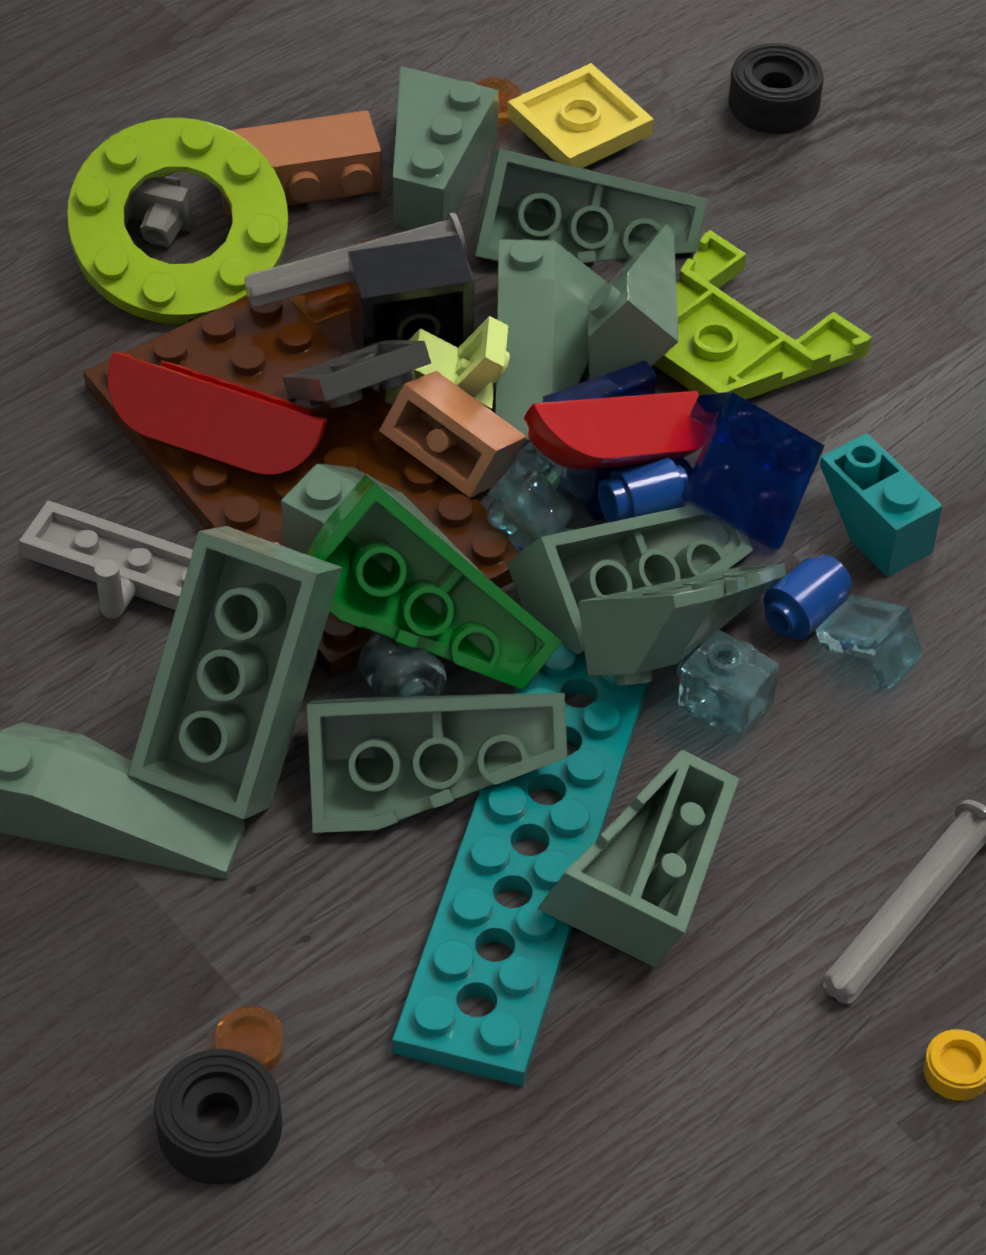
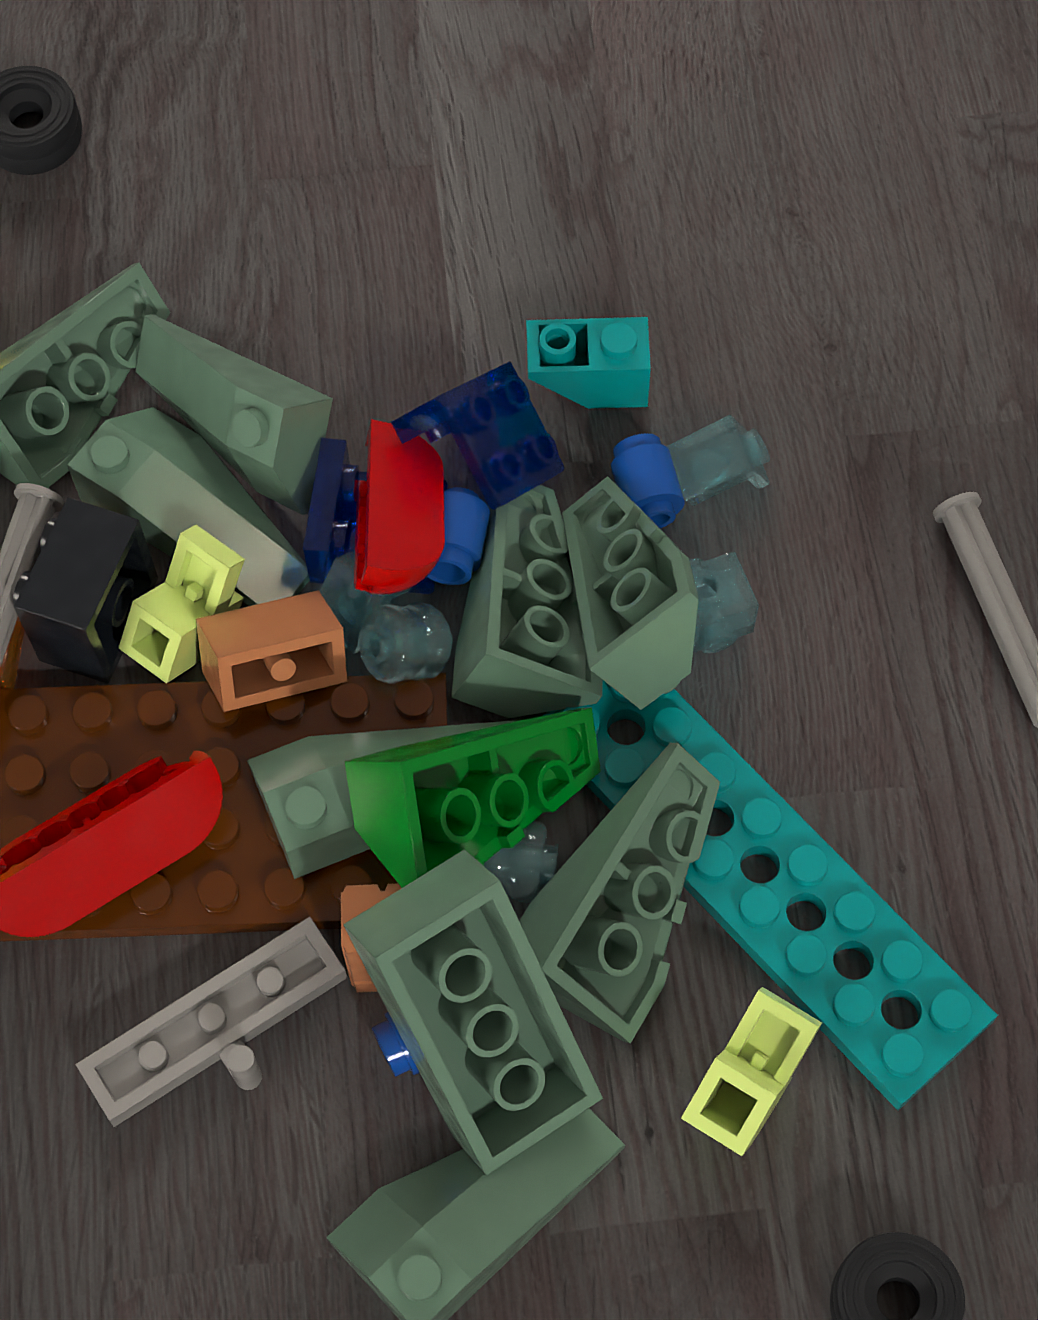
camera: 55 degrees left, 15 degrees up
(253, 1033) = (822, 1227): clear orange tile -> none
(330, 918) = (751, 1071): none -> yellowish green brick
(343, 377) = (152, 689): dark grey plate -> none
(648, 864) = (862, 780): sand green wedge -> none
(733, 348) = (327, 349): lime wing -> none

